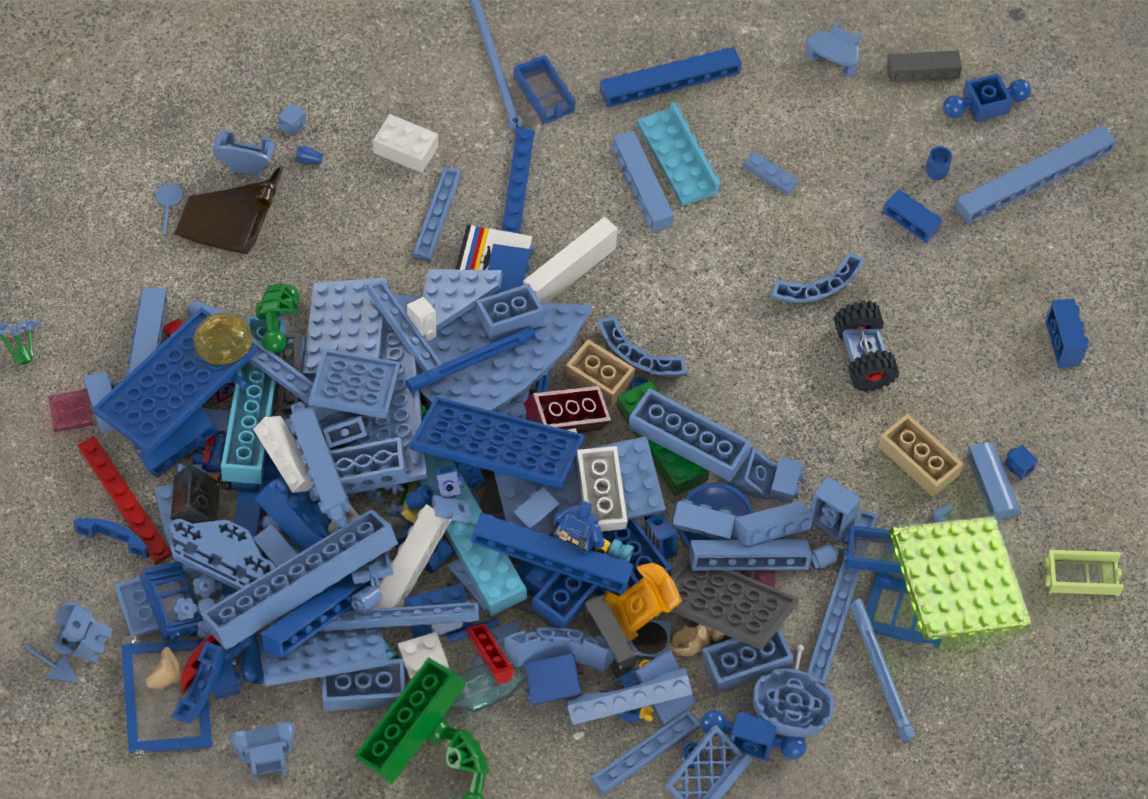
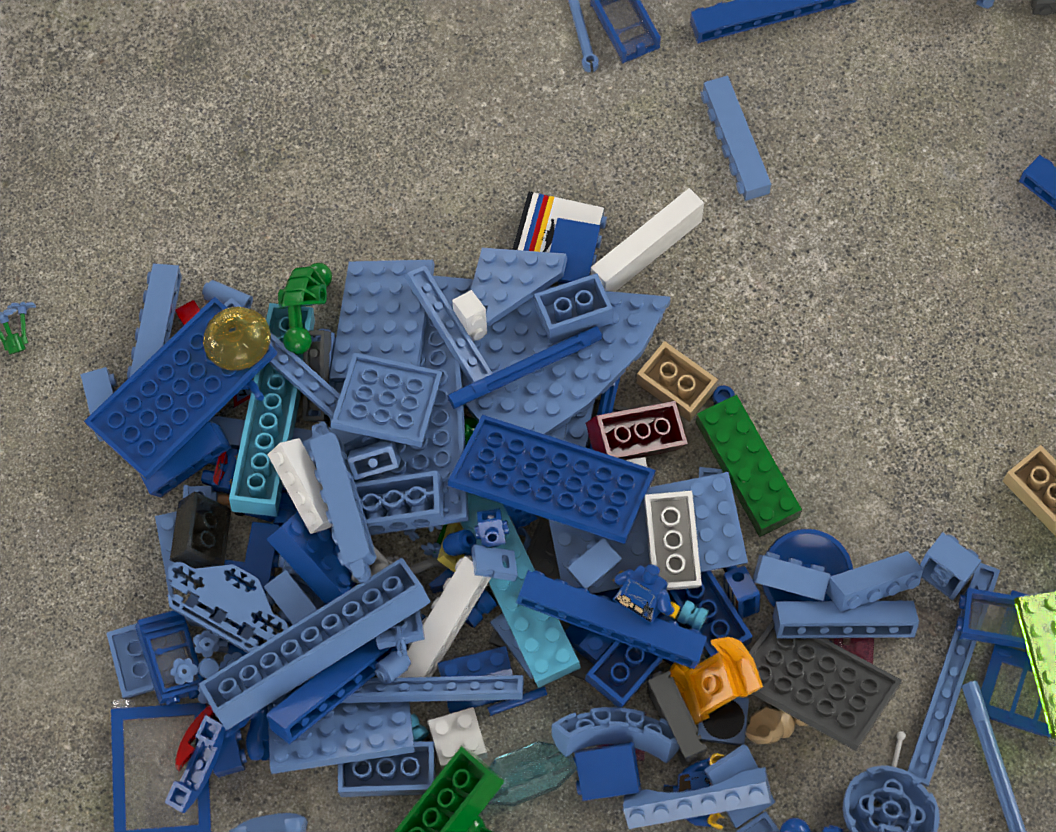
camera: 10 degrees right, 10 degrees up
(61, 671) = (43, 736): medium blue piece -> none
(70, 410) = (65, 413): clear pink plate -> none
(80, 626) = (64, 694): medium blue piece -> none
(91, 526) = (83, 559): blue slope -> none
(124, 499) = (122, 524): red plate -> none
(166, 672) = (159, 747): tan hair -> none
(168, 196) = (188, 147): medium blue piece -> none
(230, 216) = (255, 174): dark brown panel -> none
(243, 157) = (275, 102): medium blue piece -> none
(292, 119) = (331, 55): medium blue brick -> none
(308, 155) = (349, 99): blue cone -> none
(405, 143) = (461, 86): white brick -> none
(437, 214) = (495, 175): medium blue tile -> none
(490, 653) = (535, 738): red brick -> none
(501, 633) = (555, 706): medium blue piece -> none
(518, 180) = (590, 136): blue plate -> none
(636, 357) = (719, 362): medium blue brick -> none
(679, 155) = (780, 105): medium azure bracket -> none
(689, 434) = (779, 469): medium blue brick -> none
(739, 663) = (820, 758): medium blue brick -> none
(755, 475) = (852, 513): medium blue slope -> none
(771, 173) = (888, 130): medium blue plate -> none
(786, 480) = (892, 522): medium blue brick -> none
(821, 288) = (944, 280): medium blue brick -> none
(823, 556) = (933, 621): medium blue brick -> none
(870, 363) = (992, 355): black plate -> none

